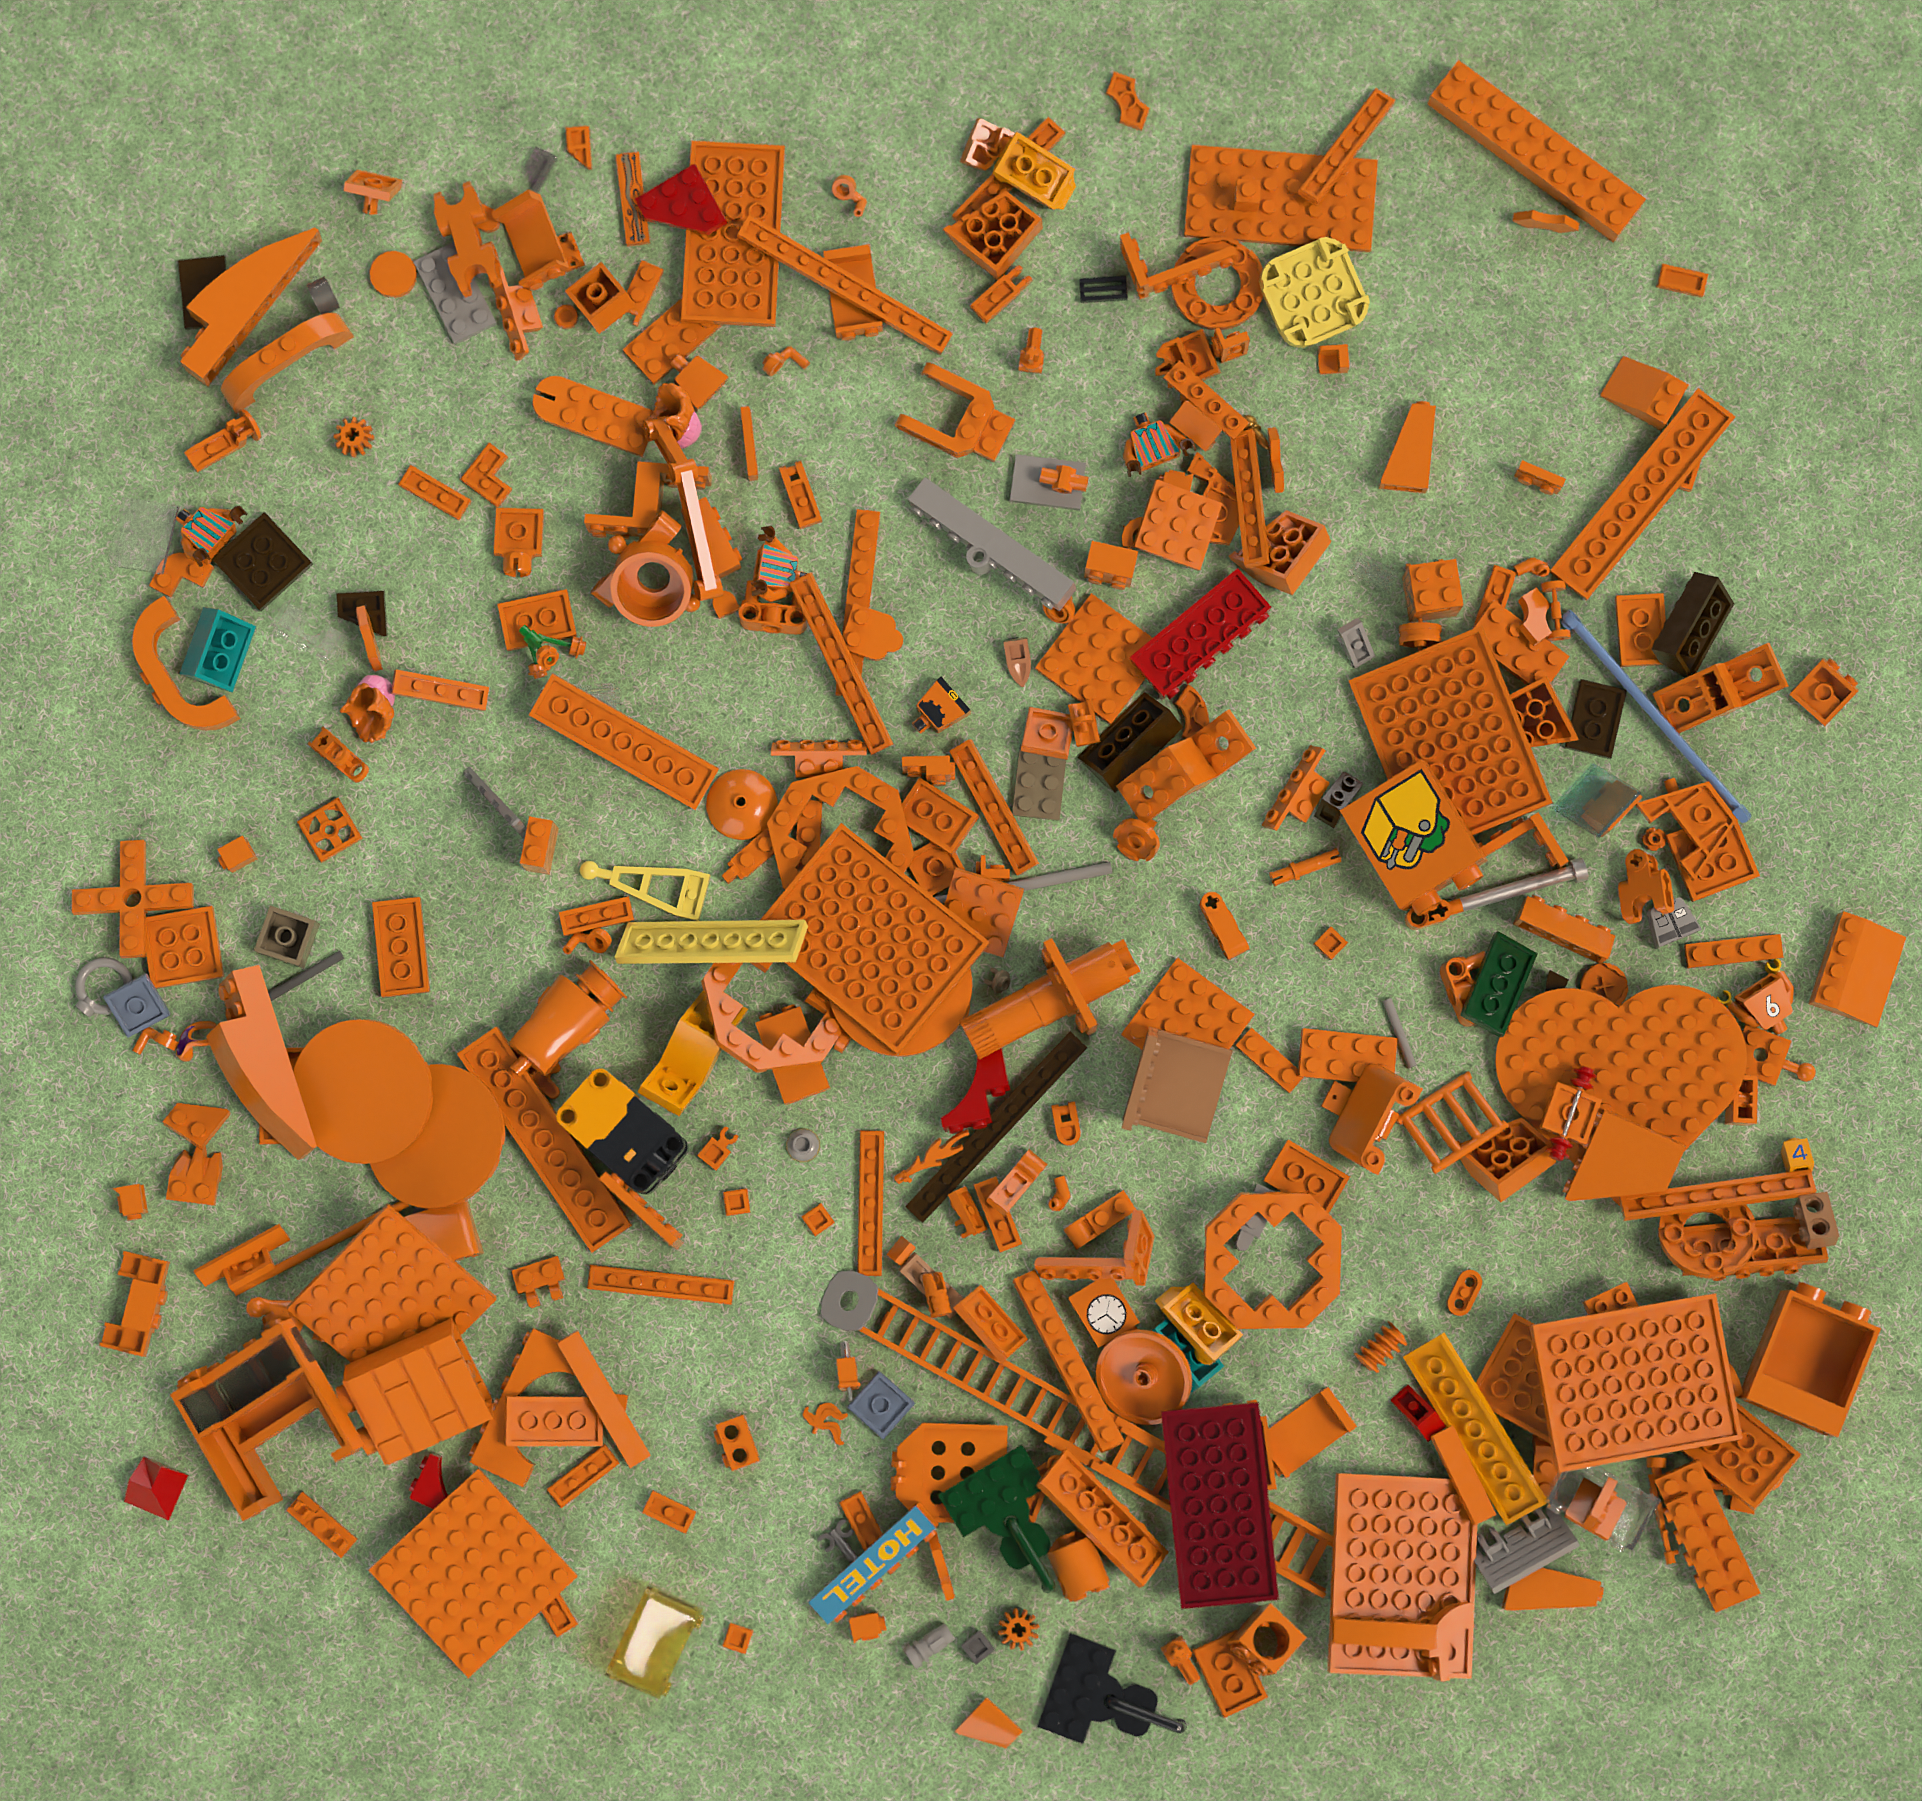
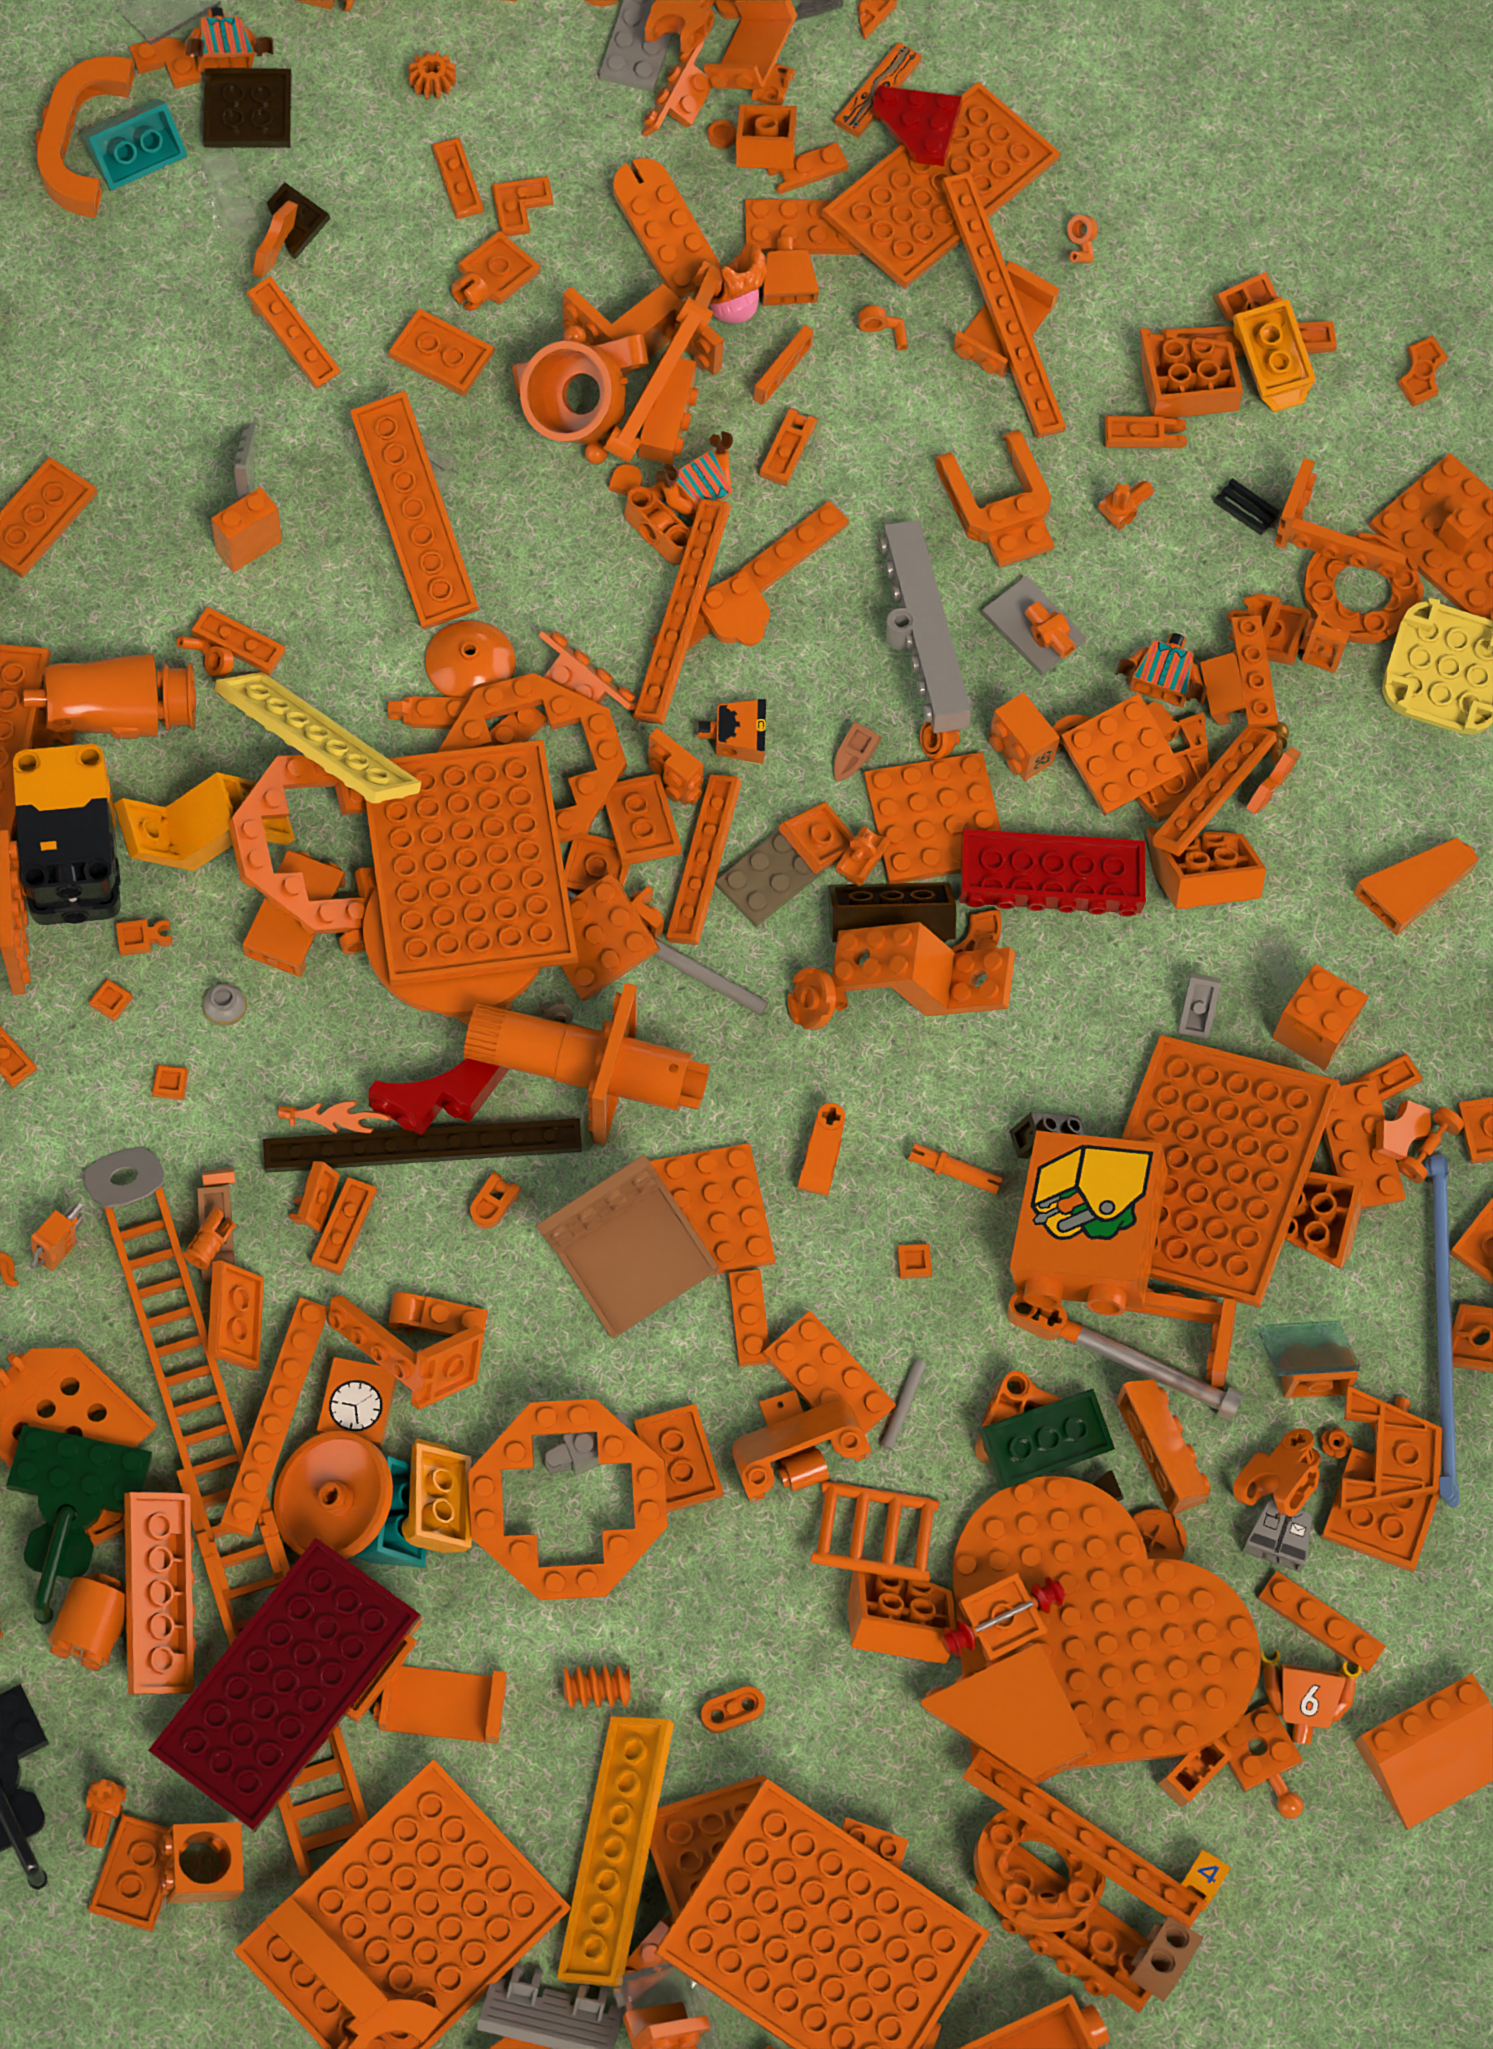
camera: 35 degrees right, 15 degrees down
(338, 824) = (70, 390): orange piece -> none
(339, 755) = (147, 307): orange piece -> none
(371, 708) = (217, 296): orange hair -> none
(547, 655) = (417, 373): plant -> none
(691, 895) = (343, 696): light yellow plate -> none
(870, 1203) = (234, 1111): orange tile -> none
(881, 1405) = (57, 1302): sand blue plate -> none
(1016, 1182) = (391, 1209): orange plate -> none
(1061, 1196) = (422, 1265): orange arm -> none
(1300, 792) = (1014, 1099): orange bracket -> none
(1333, 359) = (1415, 741): orange panel -> none
(1418, 1412) = (573, 1786): red slope -> none
(1419, 634) = (1270, 1045): orange wheel -> none
(1463, 1475) = (559, 1884): orange tile -> none
(1533, 566) = (1444, 1086): orange arm -> none
(1596, 718) = (1379, 1280): dark brown tile -> none

